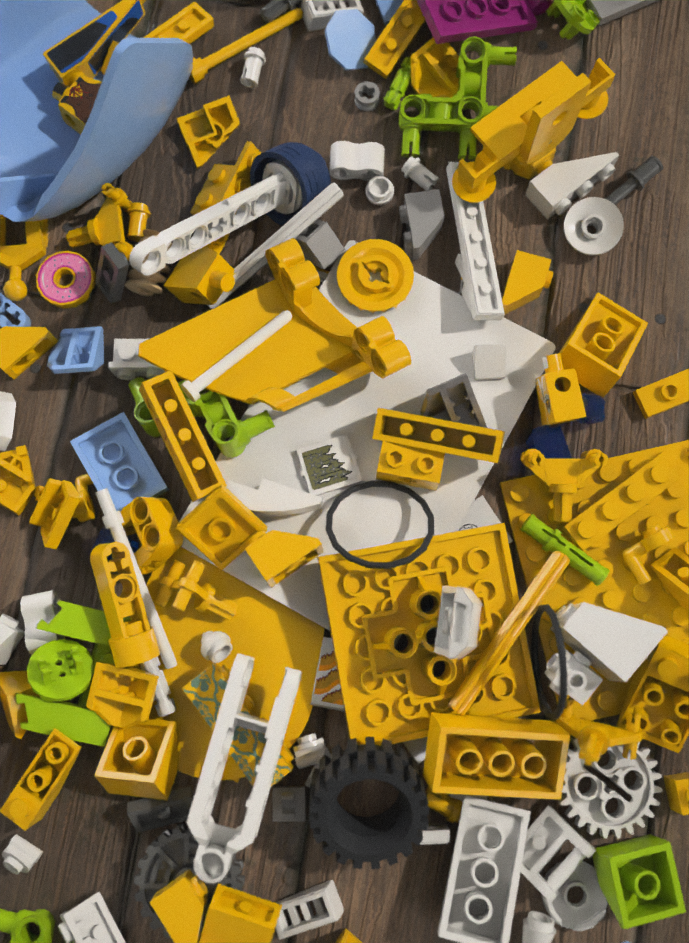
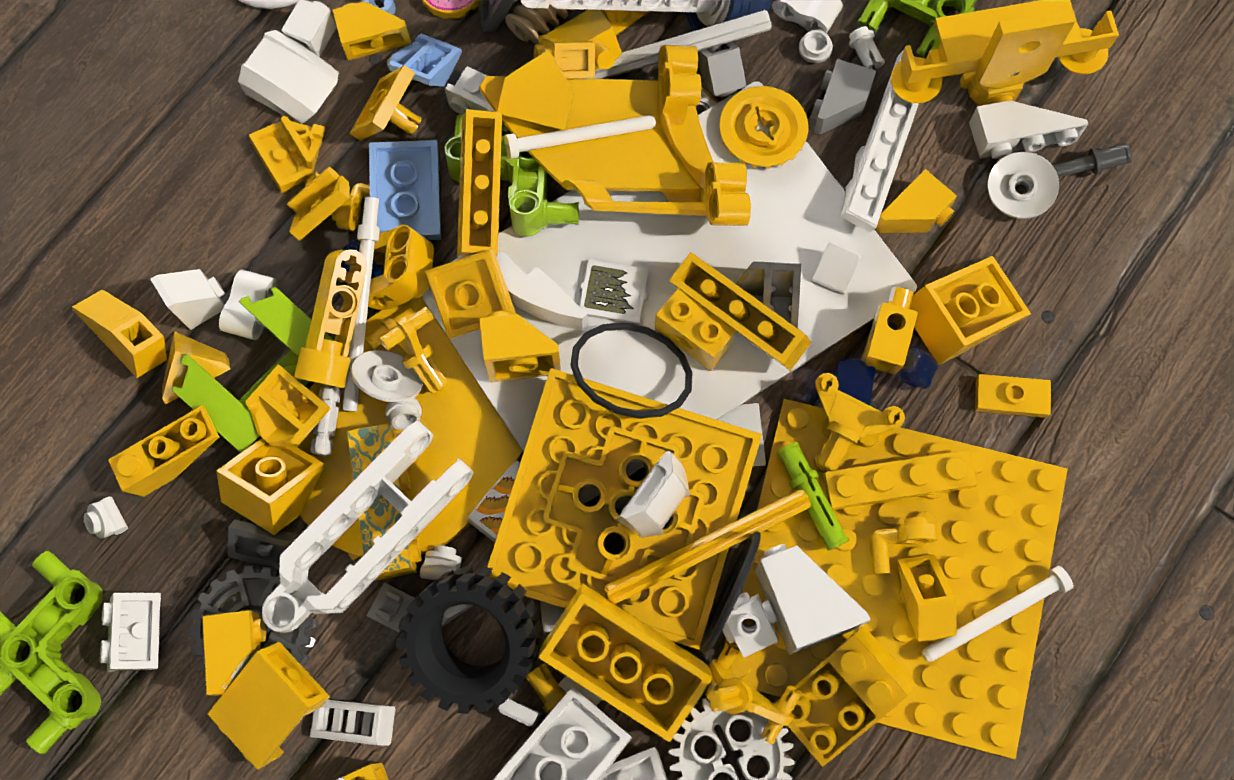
camera: 25 degrees right, 5 degrees down
(45, 674) = (256, 357): lime plate -> none
(67, 405) = (385, 106): none -> yellow tile
(187, 629) = (385, 376): none -> white dish
(189, 338) = (538, 93): none -> yellow slope
(194, 298) = (574, 58): none -> yellow bracket

